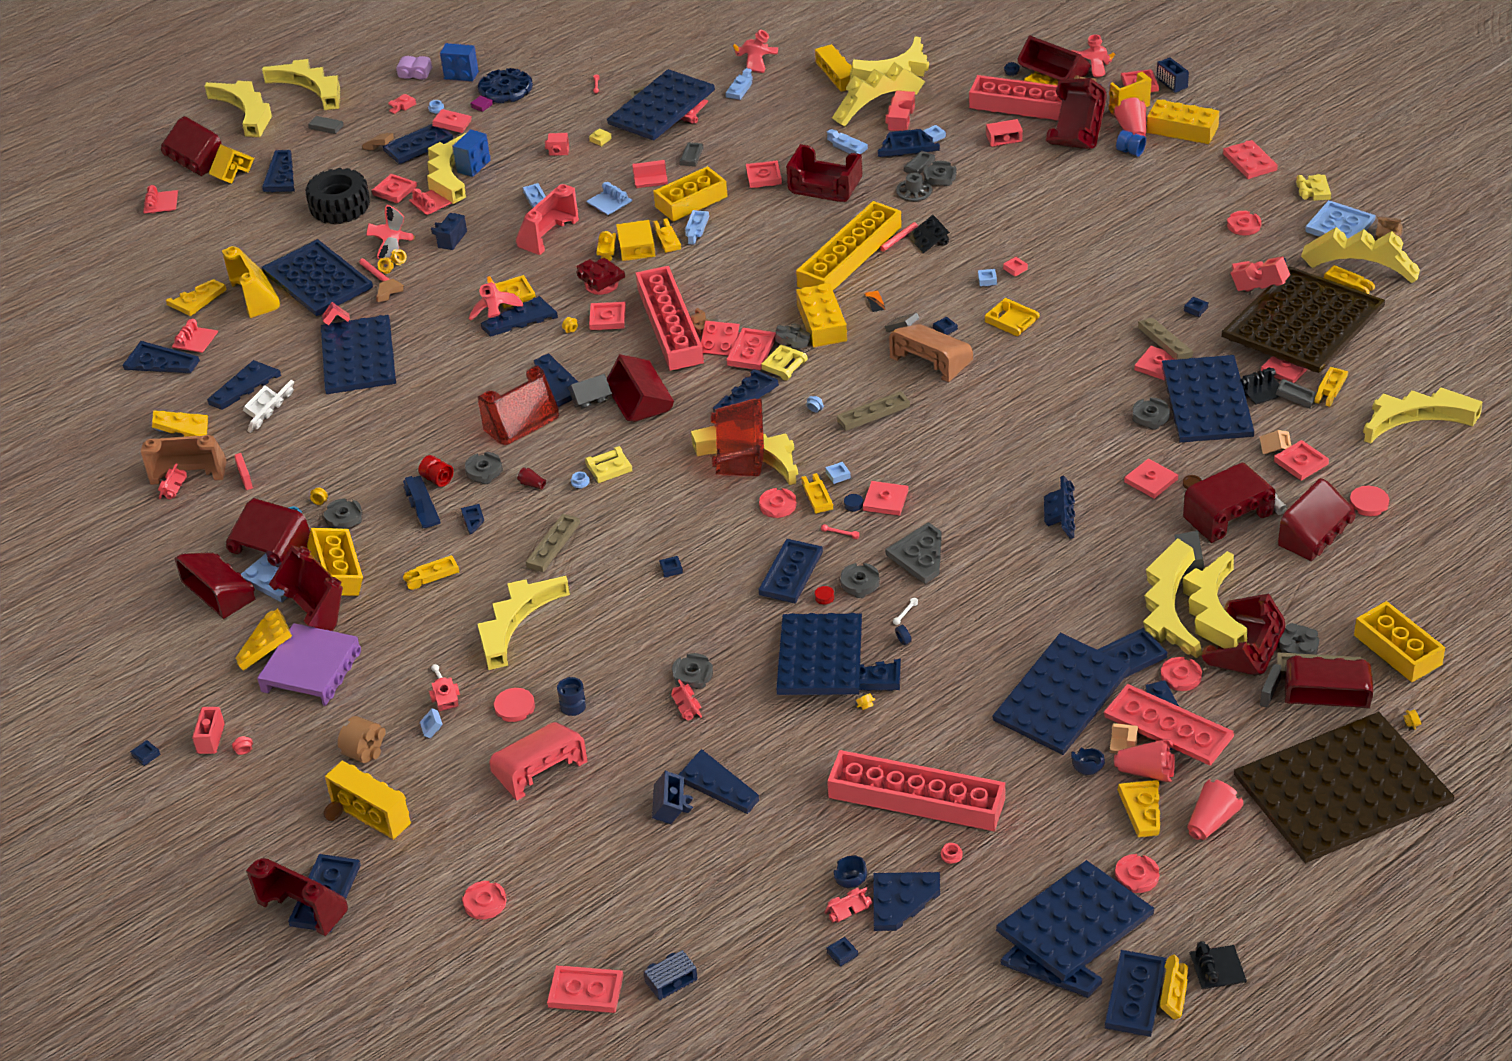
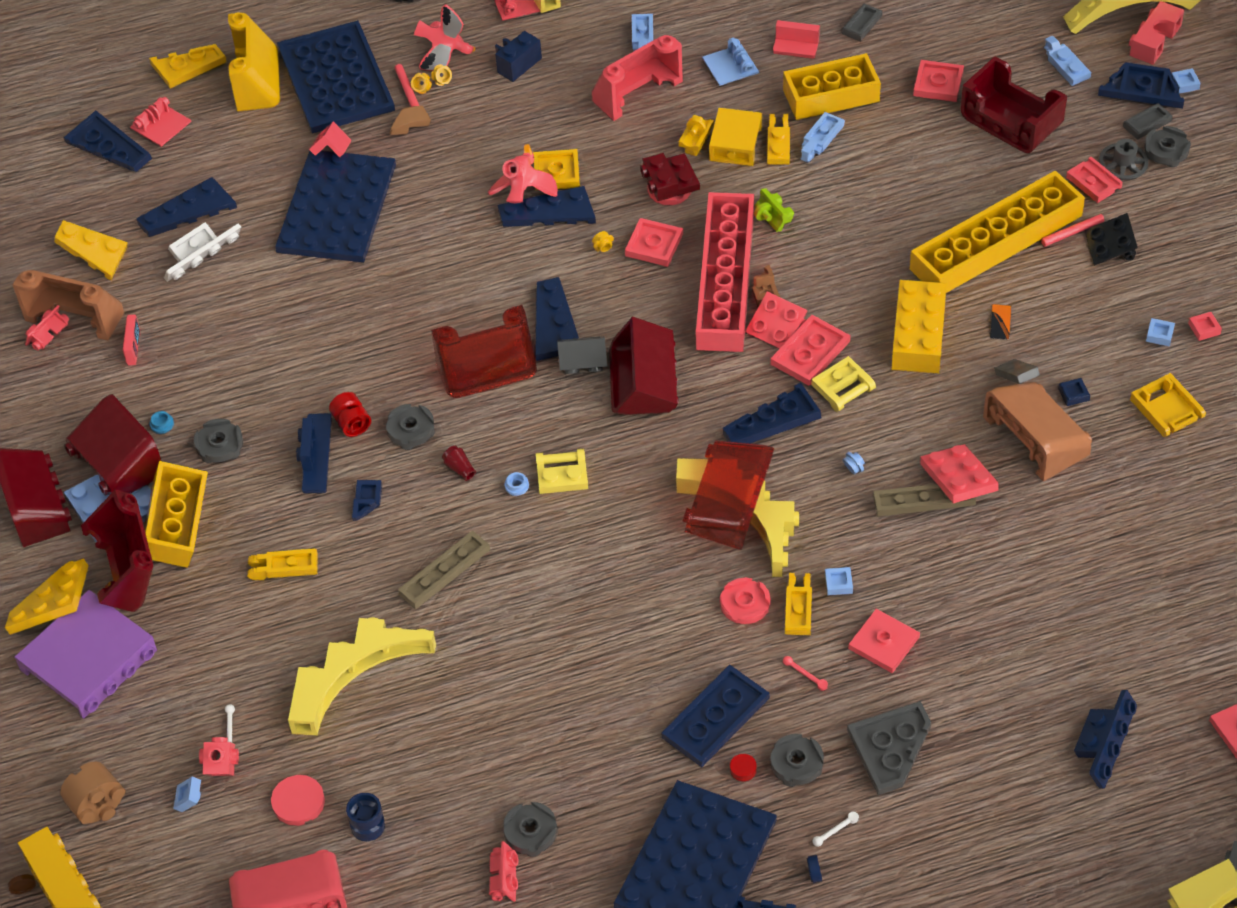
camera: 20 degrees right, 10 degrees up
(318, 496) = (202, 404): yellow plate -> none
(671, 566) = (572, 654): dark blue tile -> none
(685, 276) = (770, 208): none -> lime hips
(792, 335) = (859, 346): dark grey plate -> none
(853, 502) = (840, 633): dark blue tile -> none
(891, 389) = (959, 473): none -> coral plate
(901, 202) = (1094, 179): none -> coral plate

